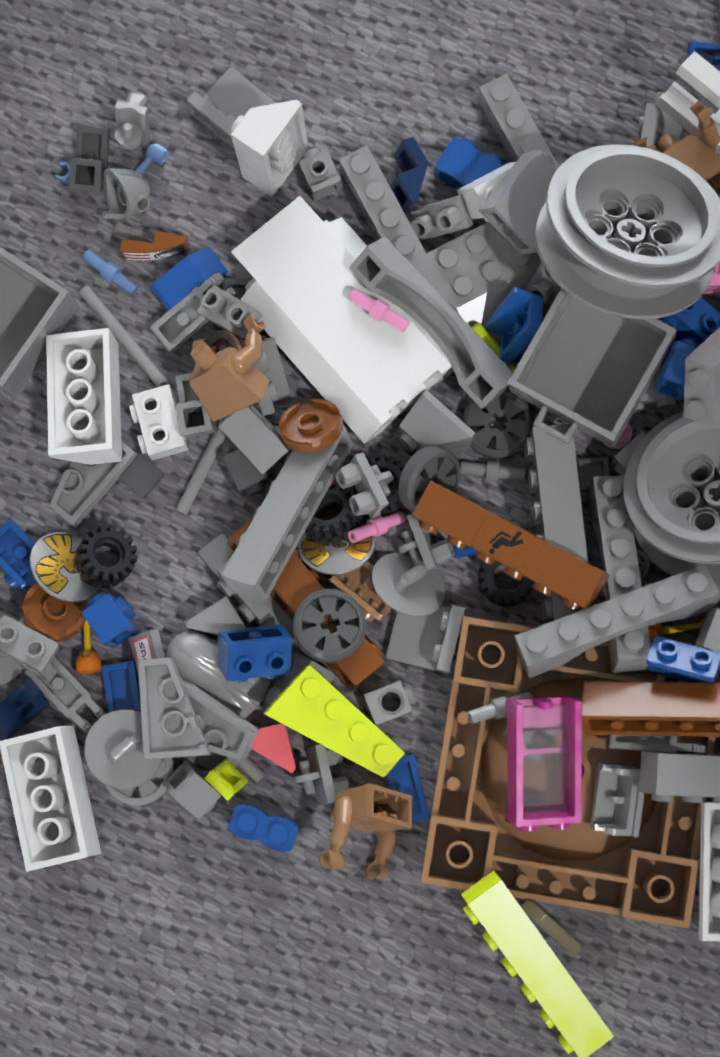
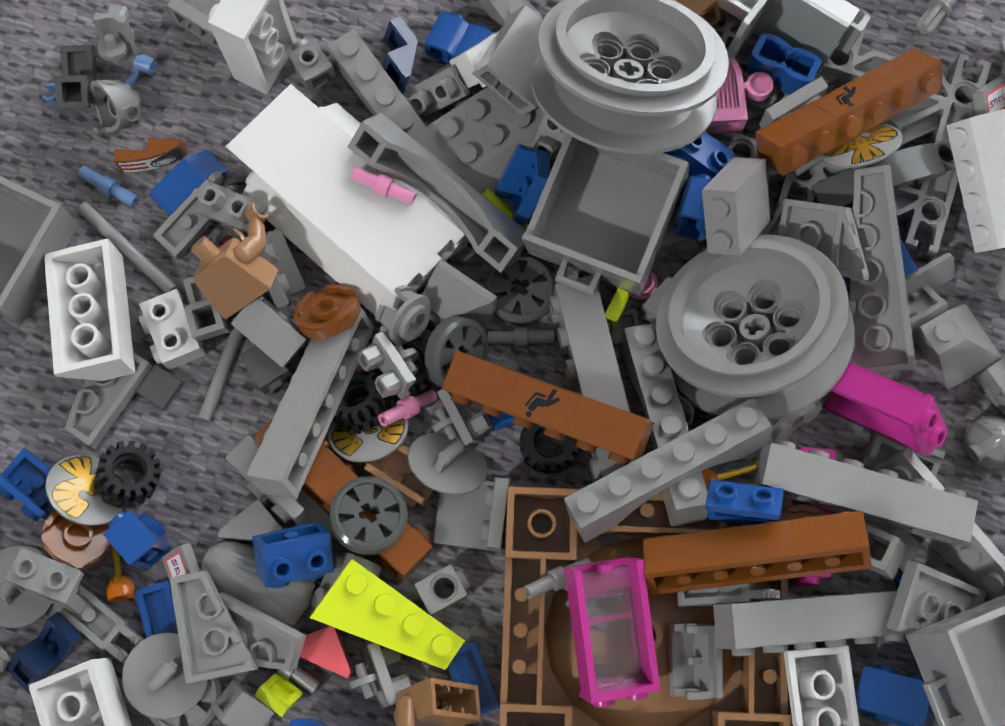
camera: 15 degrees left, 5 degrees down
(389, 445) = (397, 321): none -> light grey piece
(588, 455) = (616, 307): none -> neon yellow tile

